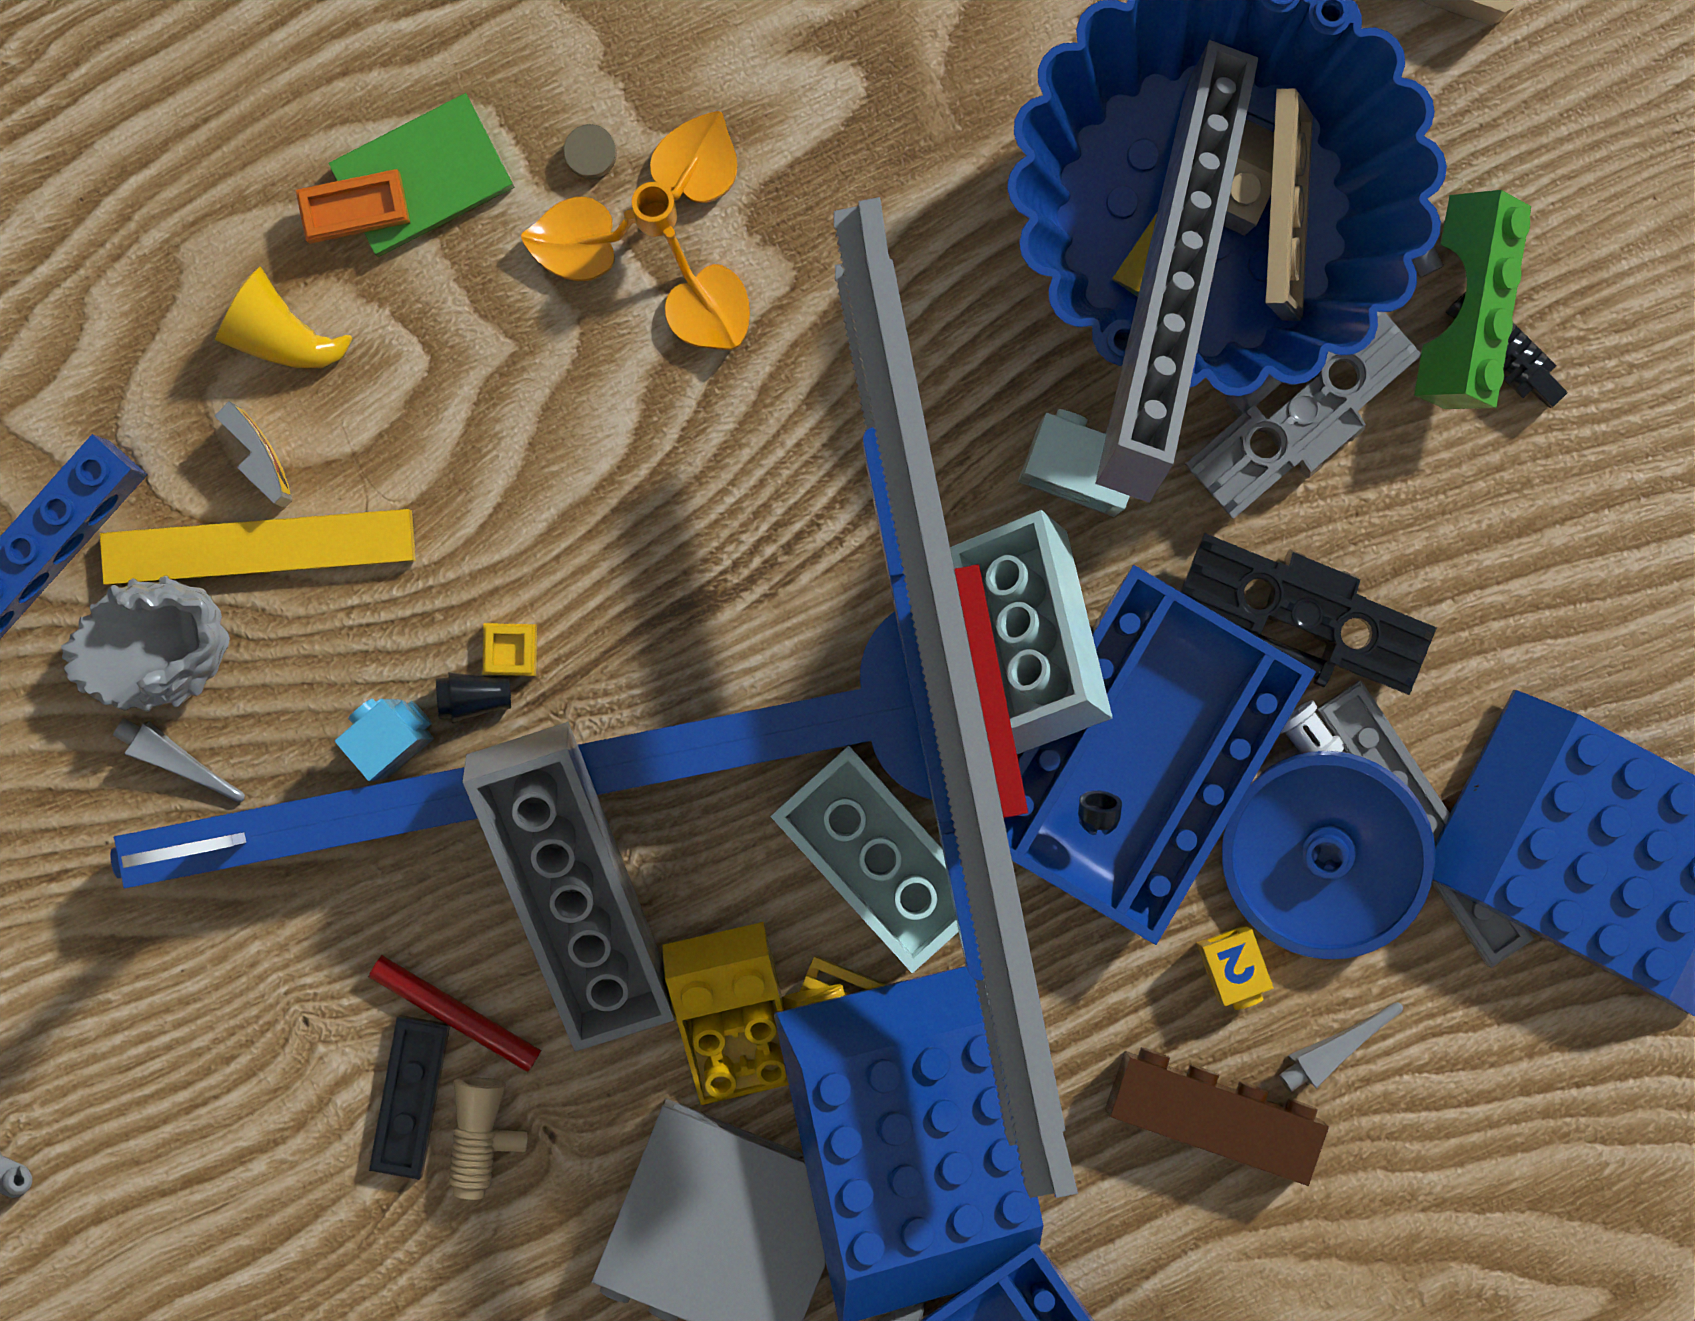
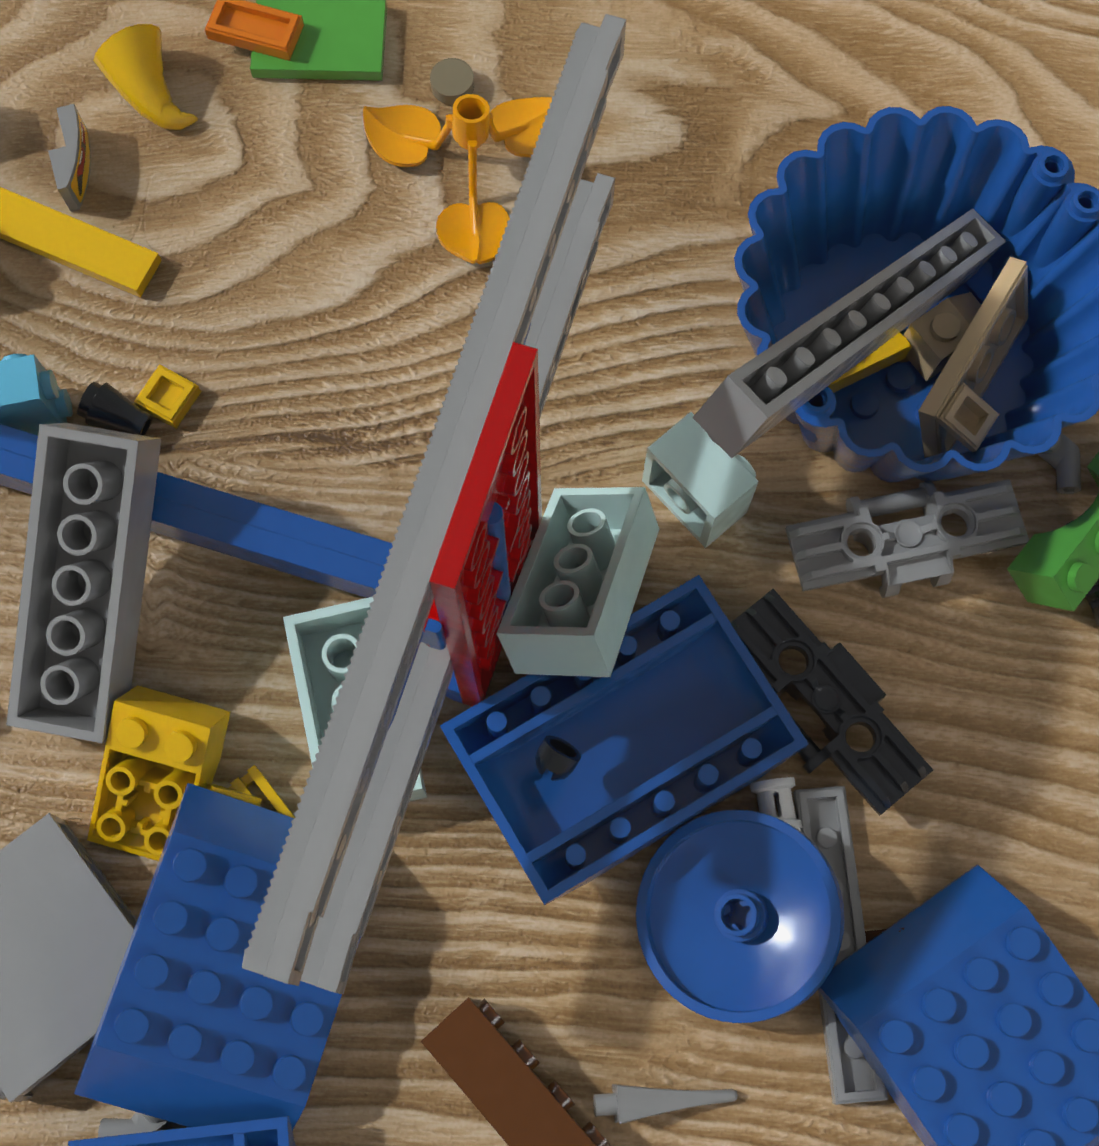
camera: 30 degrees right, 15 degrees down
(1235, 967) = (606, 973): yellow brick -> none
(1314, 281) = (967, 417): none -> tan slope

